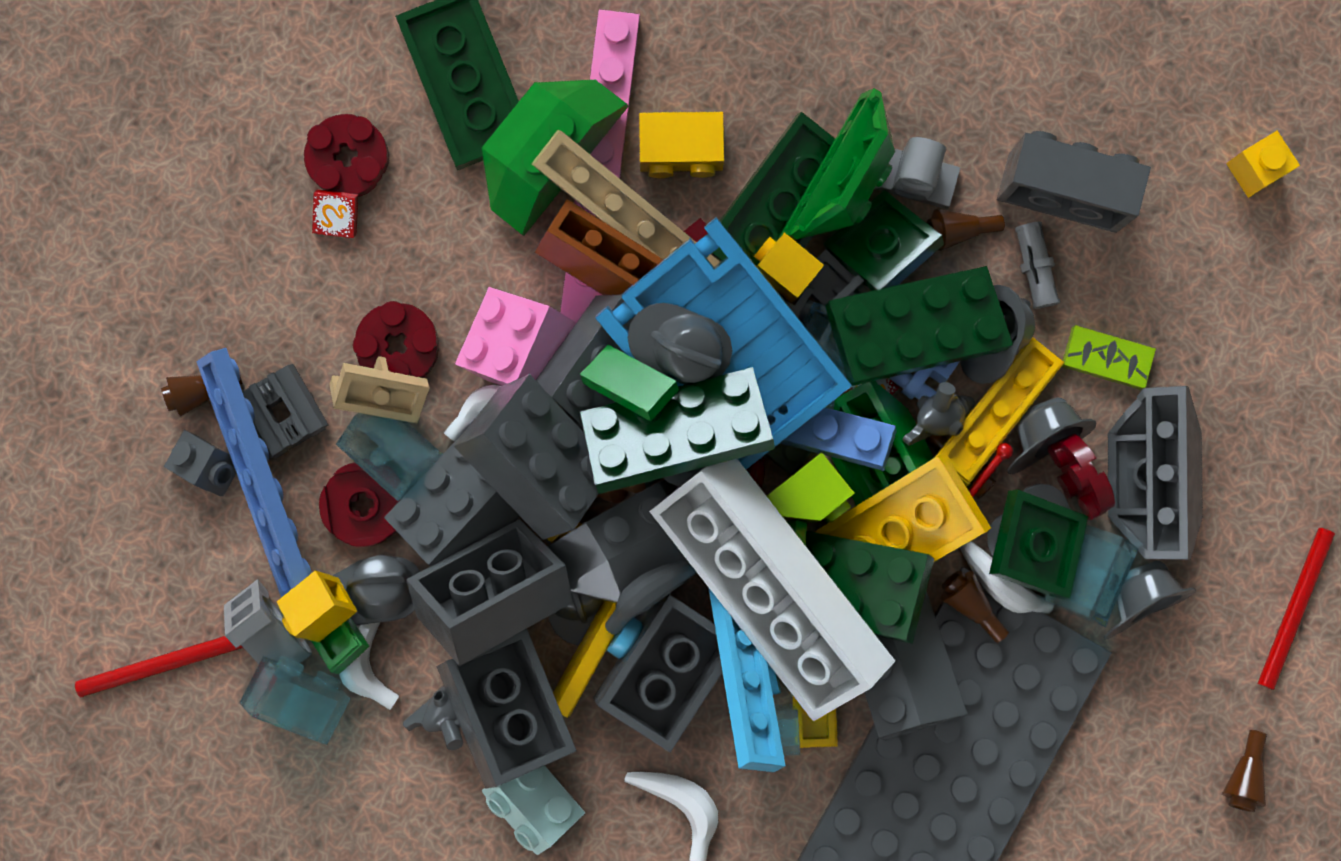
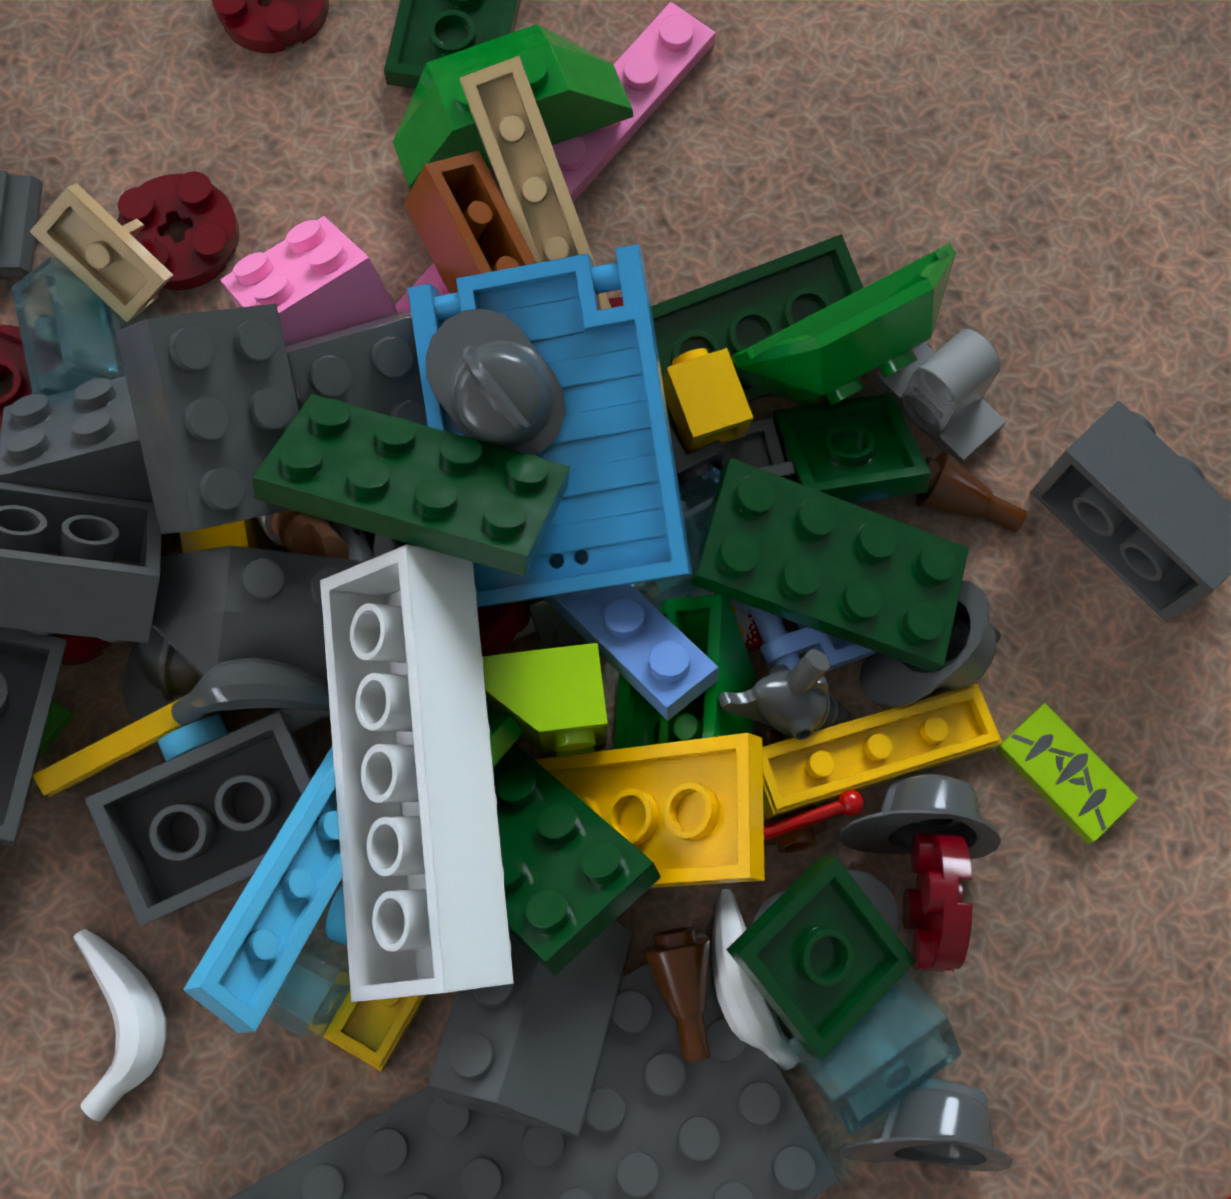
camera: 30 degrees right, 10 degrees down
(335, 213) = (210, 46): tile -> none
(629, 382) = (395, 389): tile -> none
(681, 143) = (671, 195): yellow brick -> none
(1037, 265) = (1037, 599): light grey pin -> none
(1158, 473) = (1049, 965): dark grey wedge -> none

